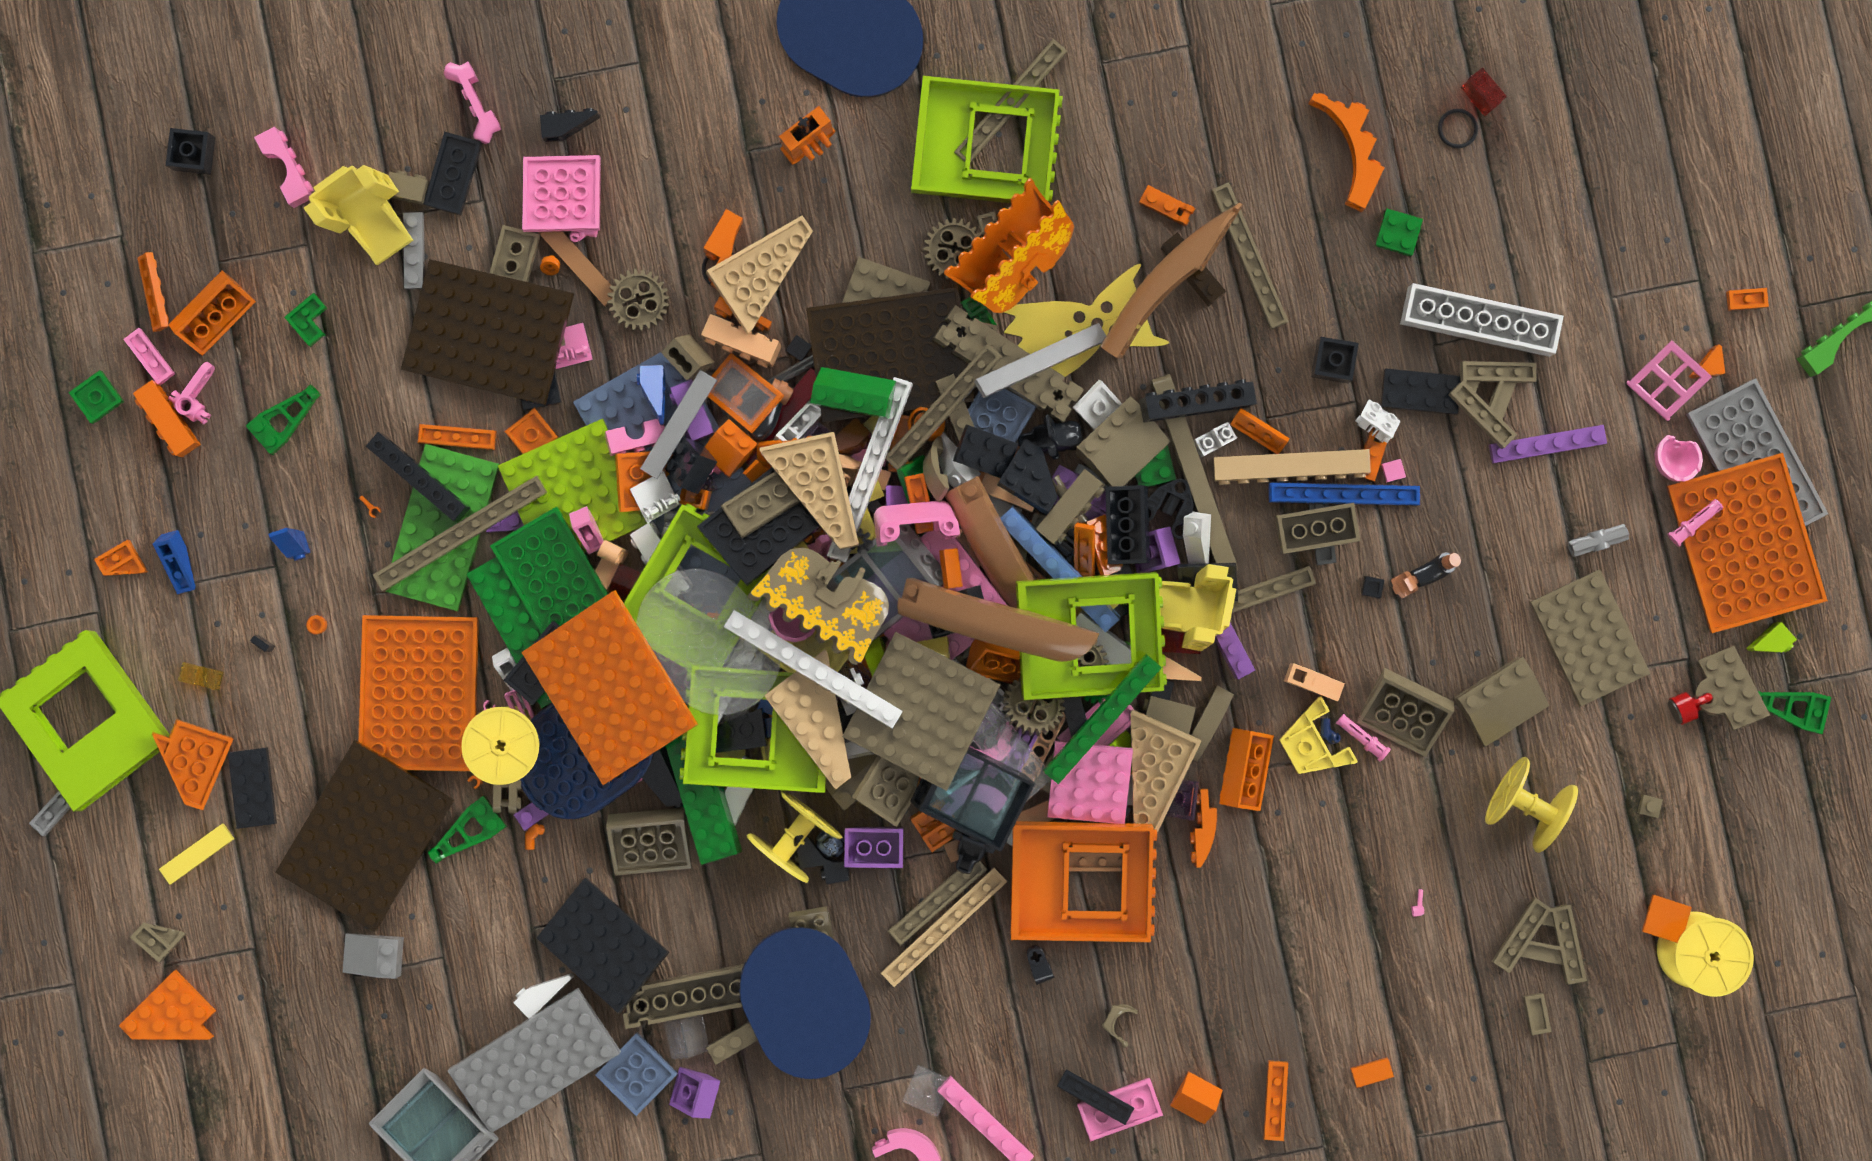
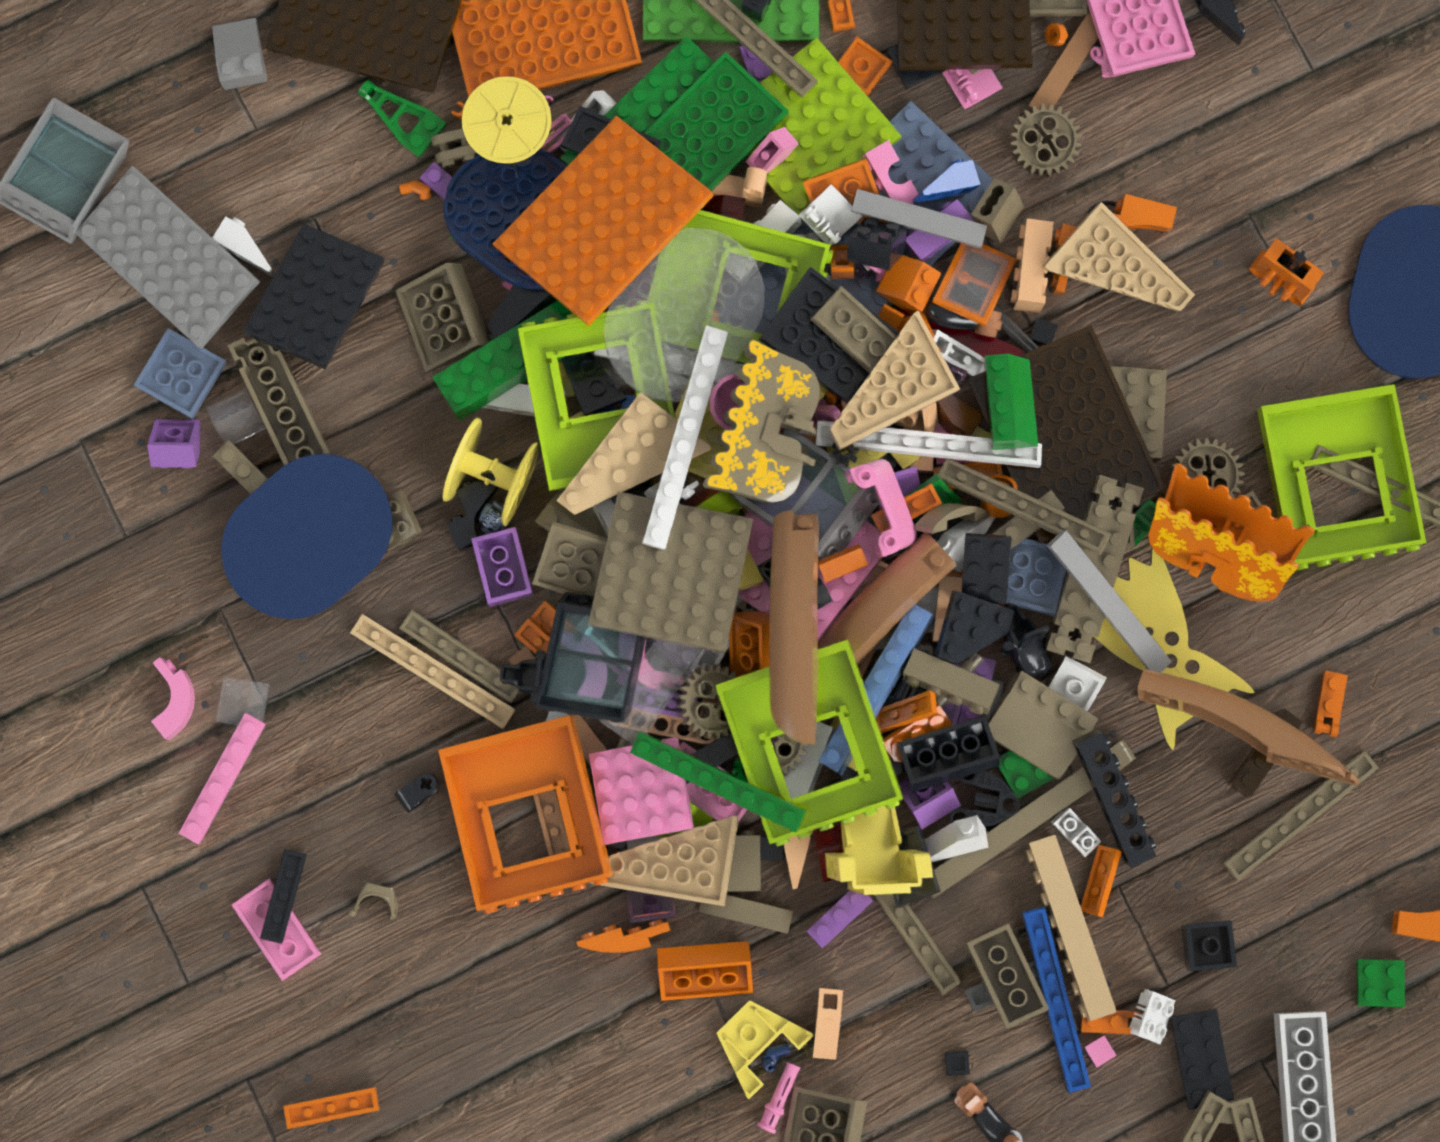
camera: 70 degrees right, 5 degrees down
(1197, 1098) = (311, 1015): orange slope -> none

